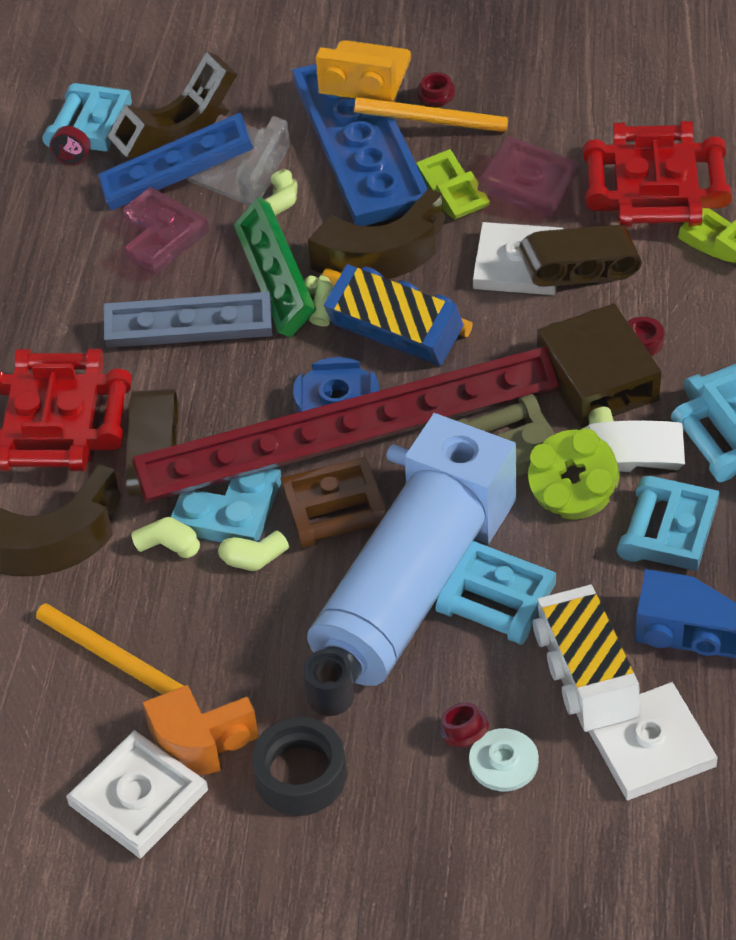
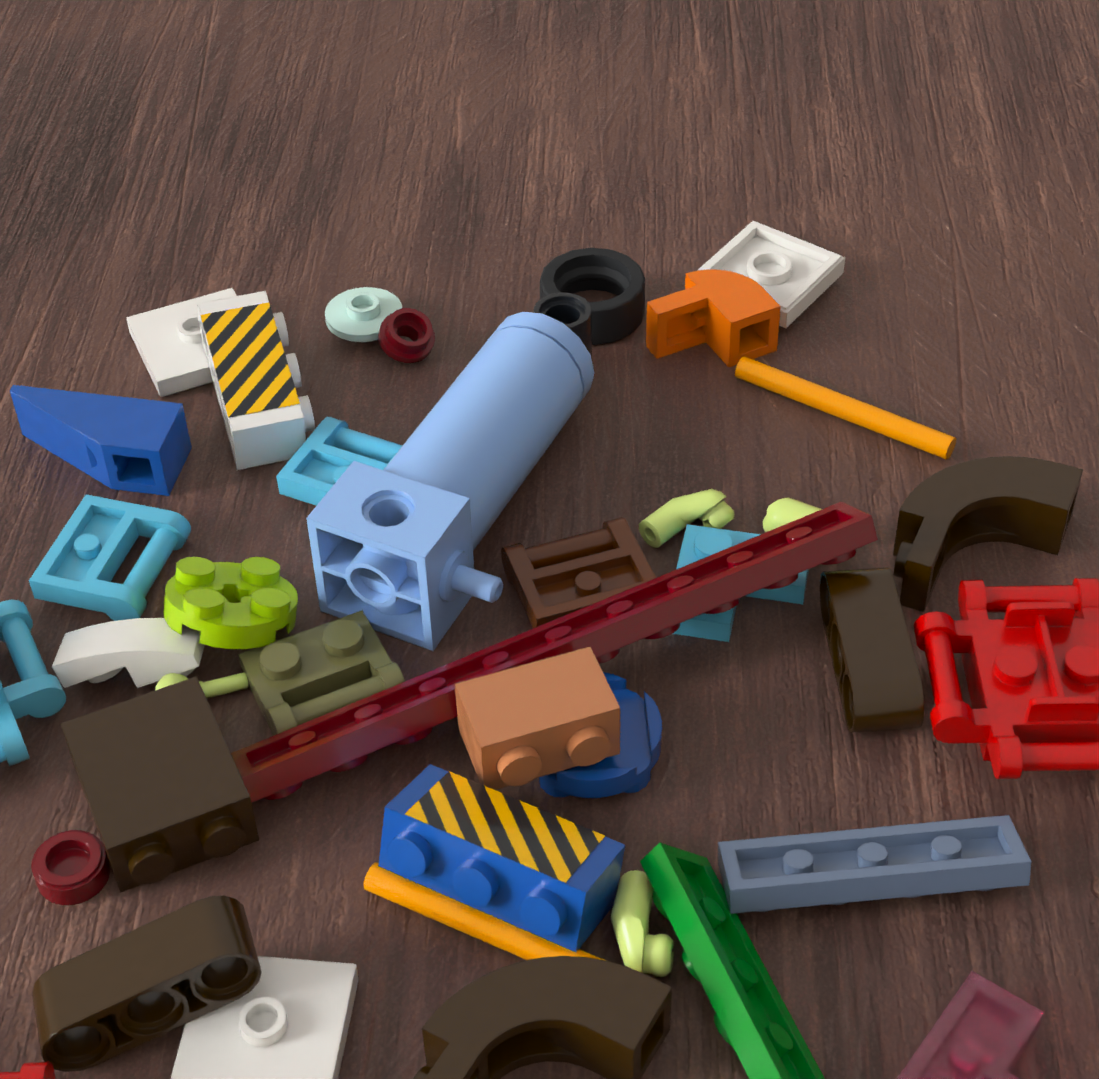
camera: 175 degrees right, 5 degrees down
(367, 361) = (538, 719): none -> nougat brick

